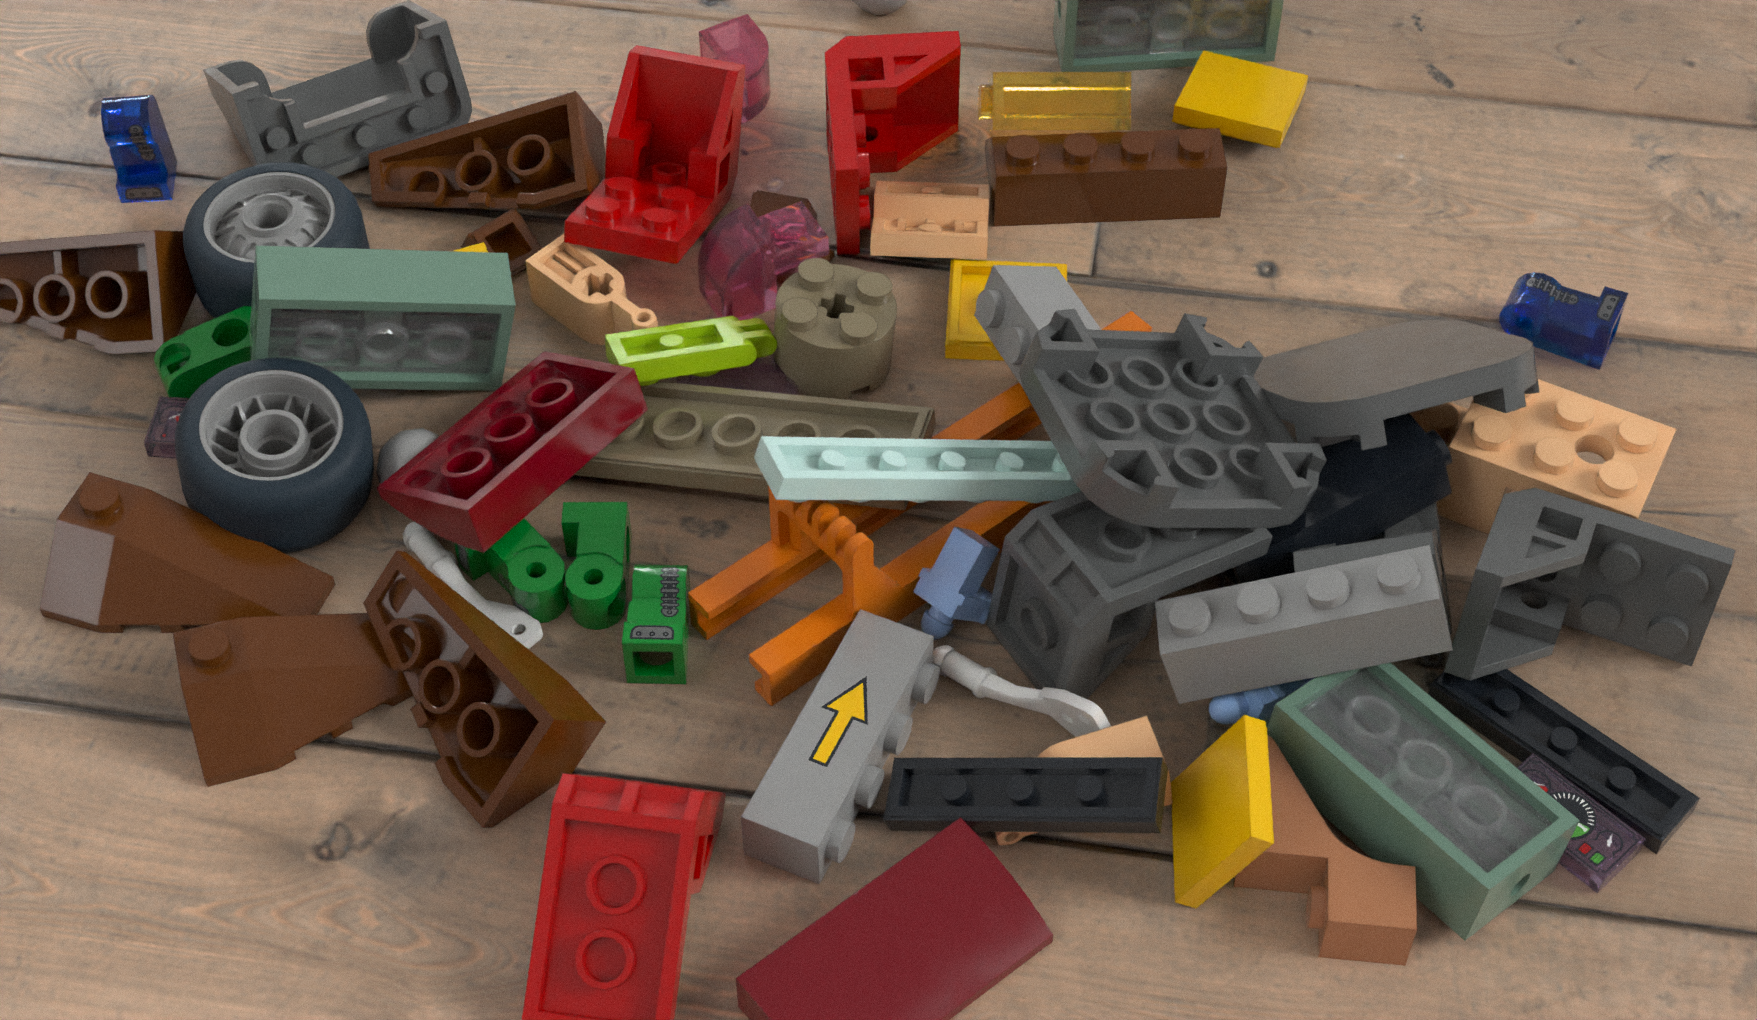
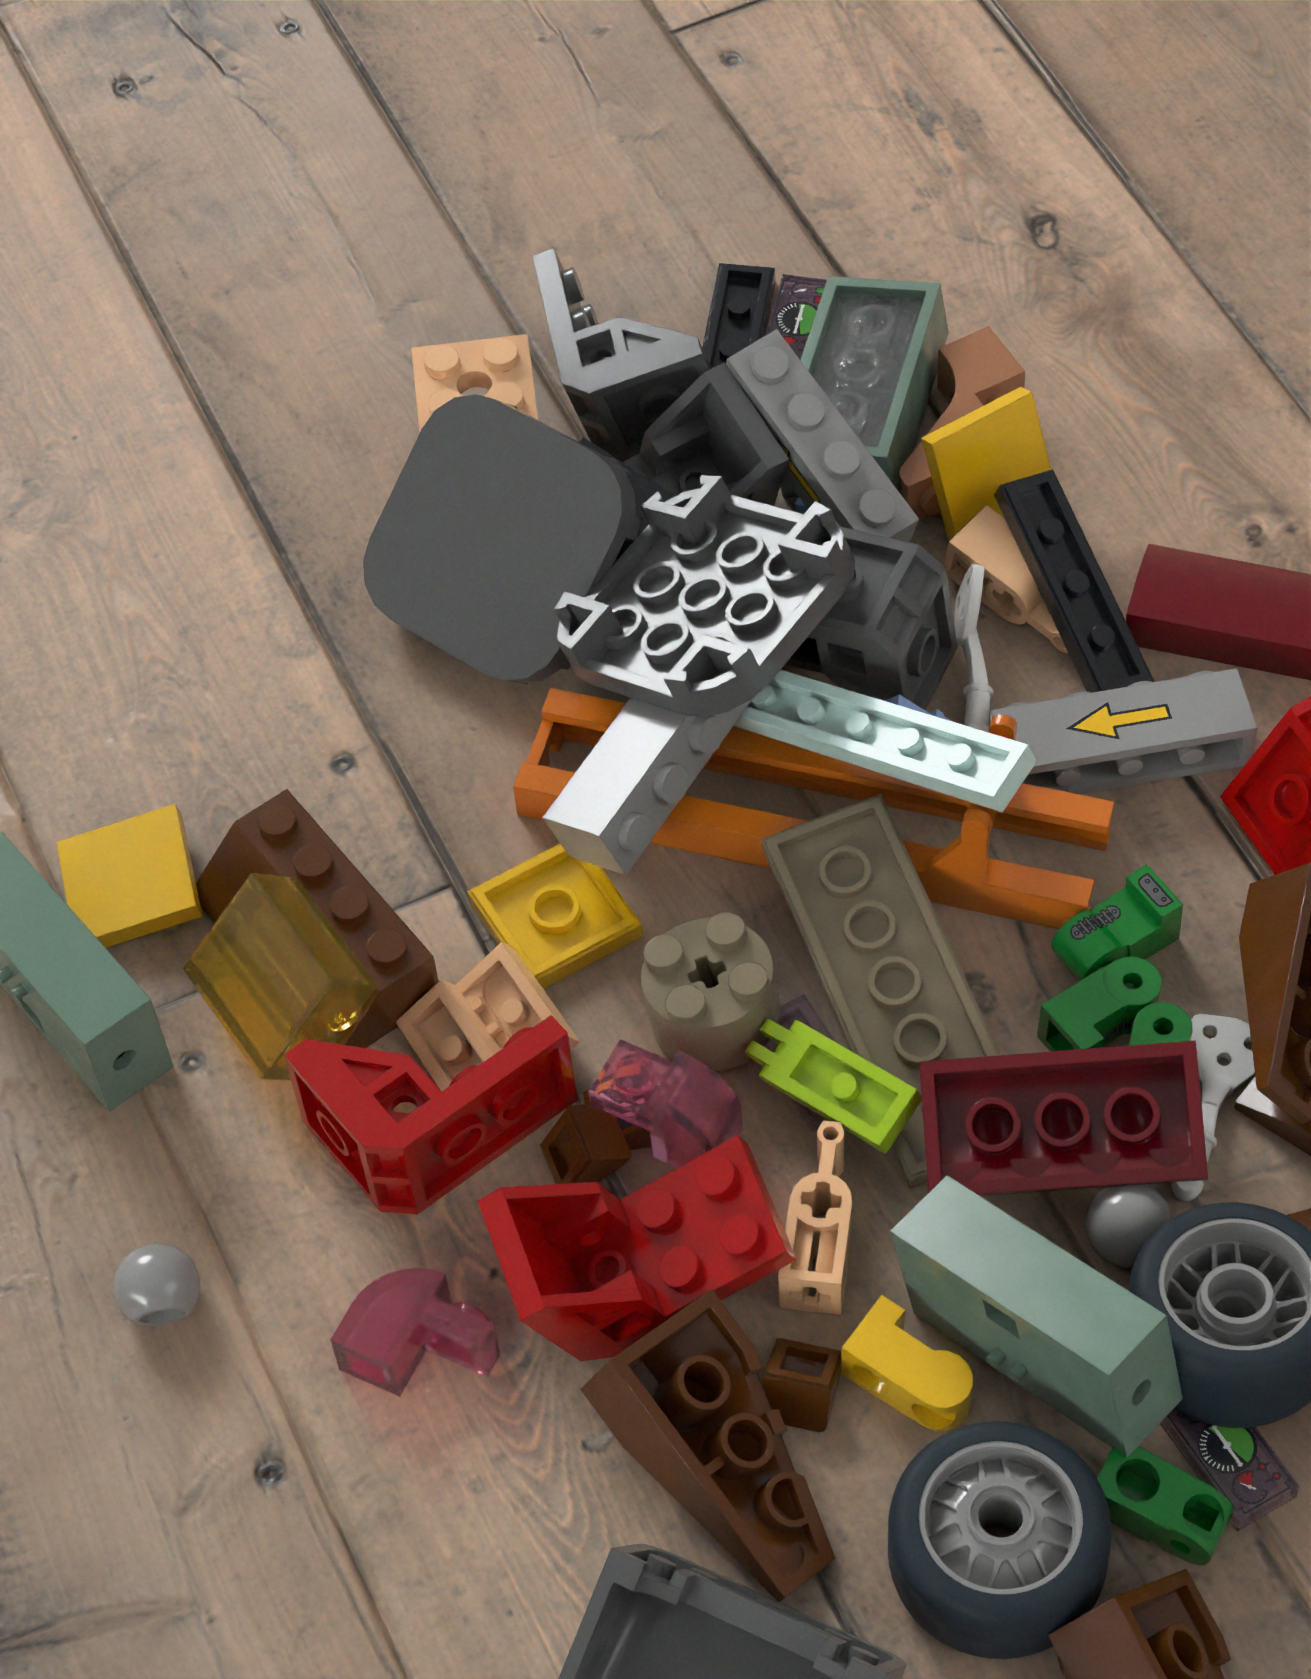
camera: 120 degrees left, 5 degrees up
(1563, 318) = (272, 514): clear blue leg -> none

